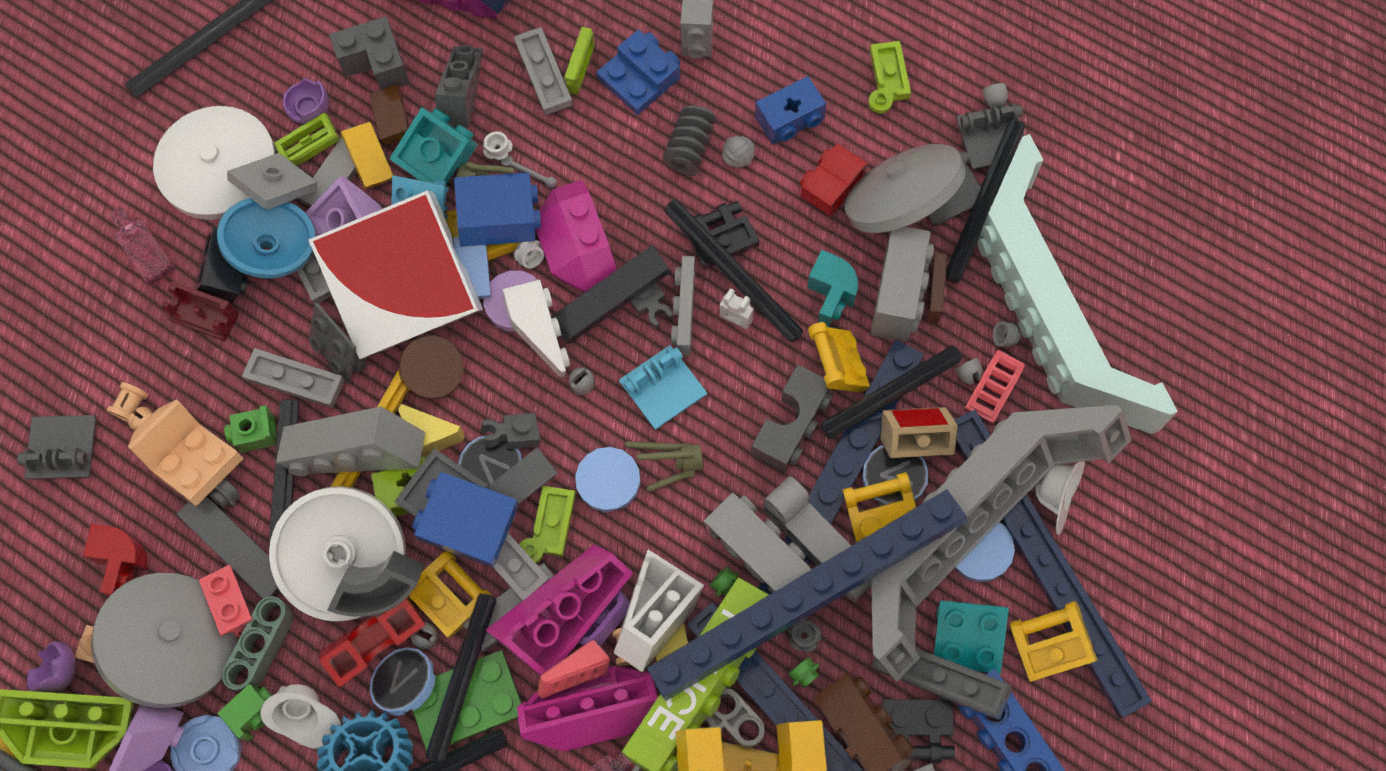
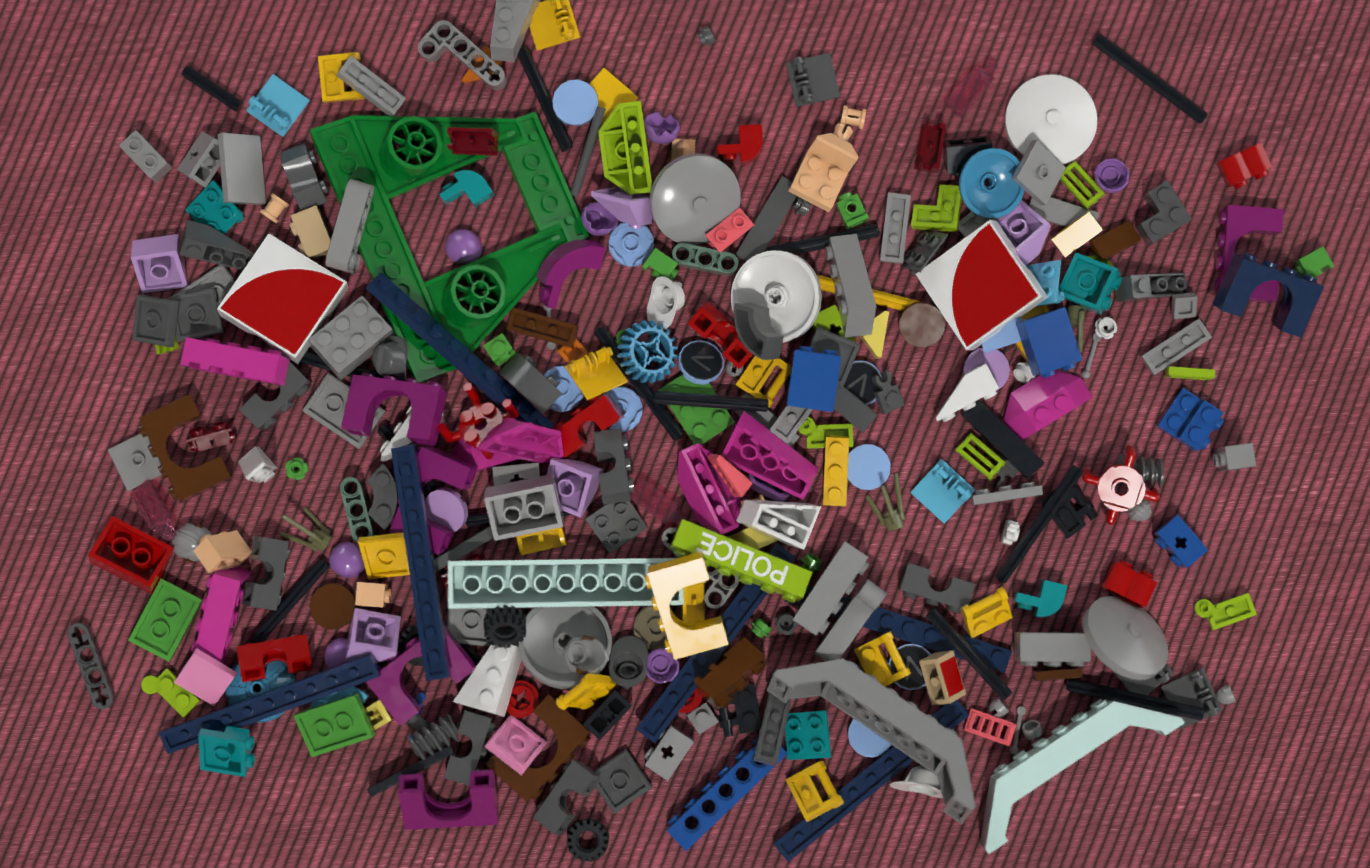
camera: 75 degrees right, 15 degrees up
(294, 316) = (940, 217): none -> lime plate
(493, 51) = (1184, 305): none -> light grey plate
(585, 385) = (933, 436): light grey hinge -> none
(602, 520) = (836, 470): none -> yellow plate
(634, 337) = (994, 469): none -> lime tile
(693, 169) = (1121, 473): none -> plate
(806, 594) = (808, 621): dark blue plate -> none
(978, 346) = (1020, 712): none -> light grey hinge

